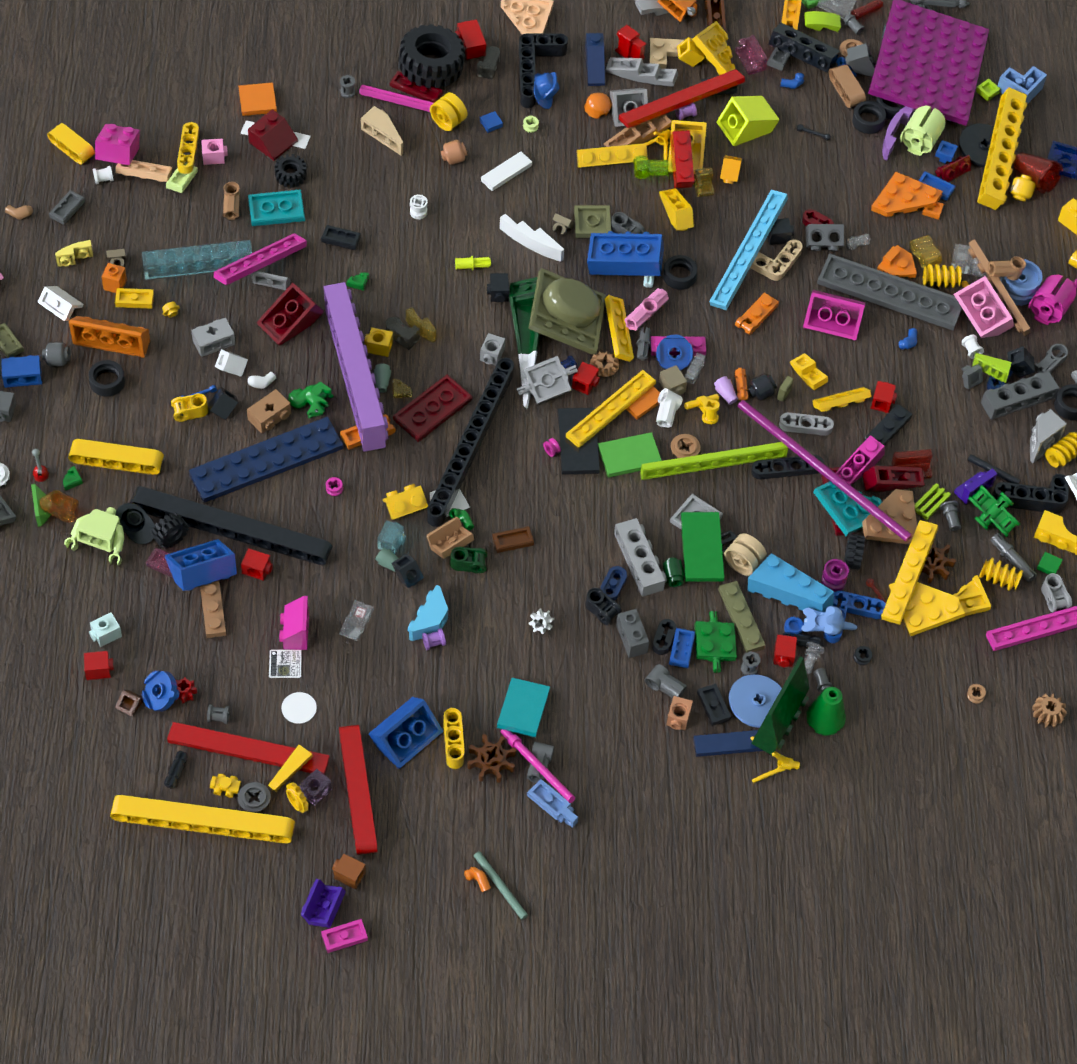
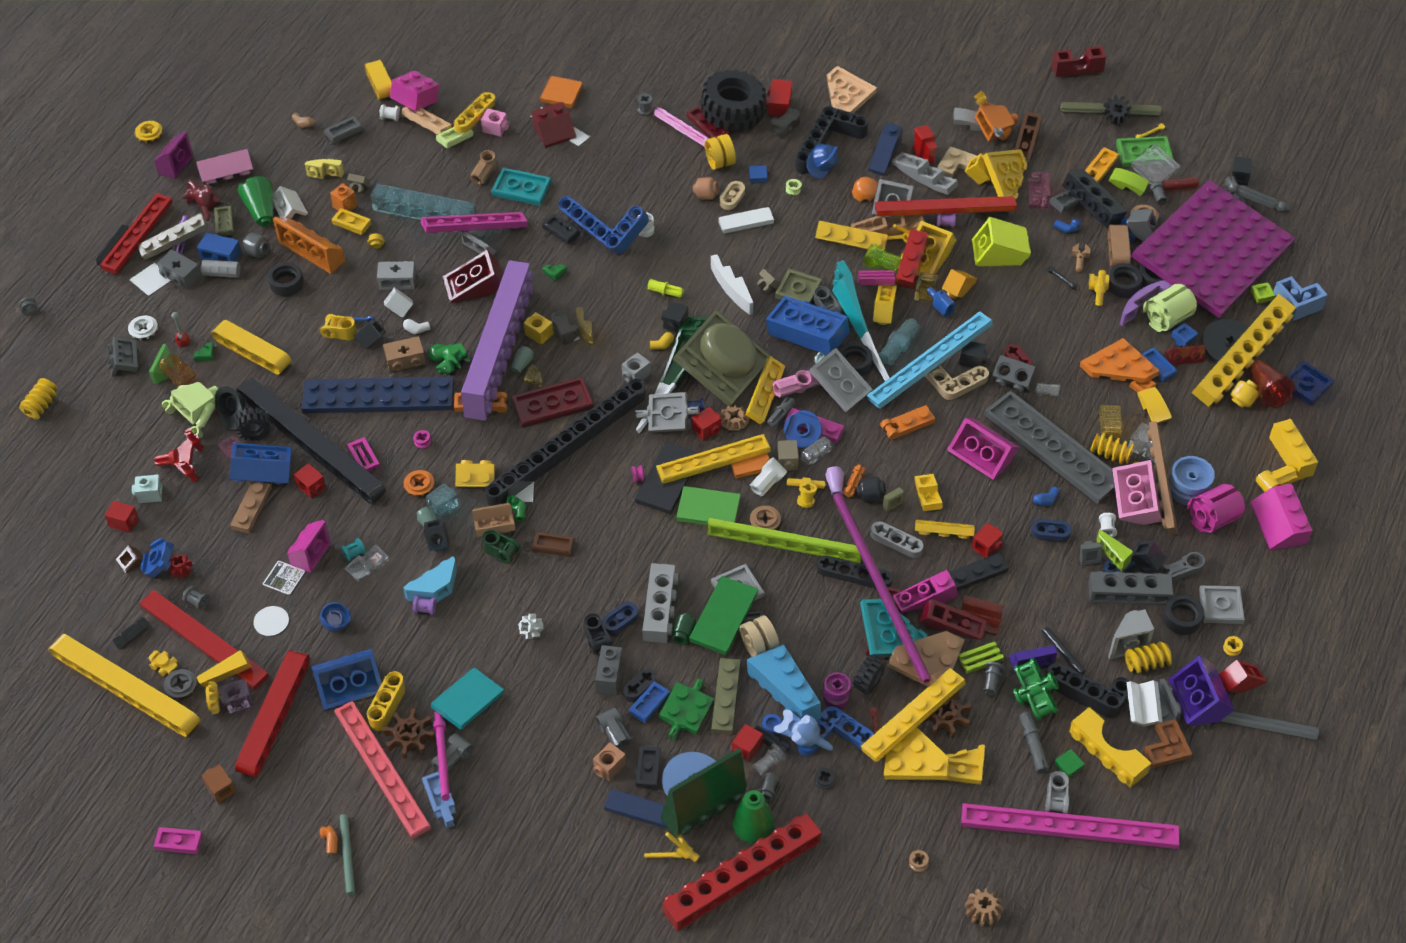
camera: 30 degrees right, 5 degrees down
(31, 308) = (258, 198): none -> green cone
(34, 389) = (220, 268): none -> light grey axle
(119, 586) = (183, 455): none -> red axle
(271, 518) = (369, 467): none -> dark pink tile
(290, 178) = (554, 165): black tyre -> none
(322, 904) = (175, 802): dark purple bracket -> none
(340, 609) = (353, 550): none -> teal bush
(353, 523) = (421, 477): none -> orange gear
(361, 681) = (335, 617): none -> blue hair
(380, 127) = (651, 144): tan slope -> none
(380, 223) = (599, 228): none -> blue beam
(481, 150) = (732, 195): none -> tan plate
(484, 799) = (382, 770): none -> coral tile
(501, 315) = (664, 342): none -> yellow arm
(642, 211) = (847, 297): none -> teal plate
(655, 187) = (876, 277): none -> dark pink tile
(682, 295) = (840, 380): none -> light grey plate
(709, 241) = (898, 341): none -> clear light blue piece
(725, 190) = (942, 302): none -> blue piece
(753, 663) = (706, 742): dark grey bush -> none
(813, 818) = (682, 916): none -> red brick
(818, 106) = (1080, 256): none -> medium nougat bar
(852, 128) = (1100, 285): none -> yellow piece
(898, 263) = (1076, 422): orange plate -> none
(927, 367) = (1051, 530): none -> dark blue plate
(956, 225) = (1155, 405): none -> yellow slope
(1001, 574) = (1008, 754): yellow piece -> none
(1010, 269) = (1180, 462): medium nougat piece -> none

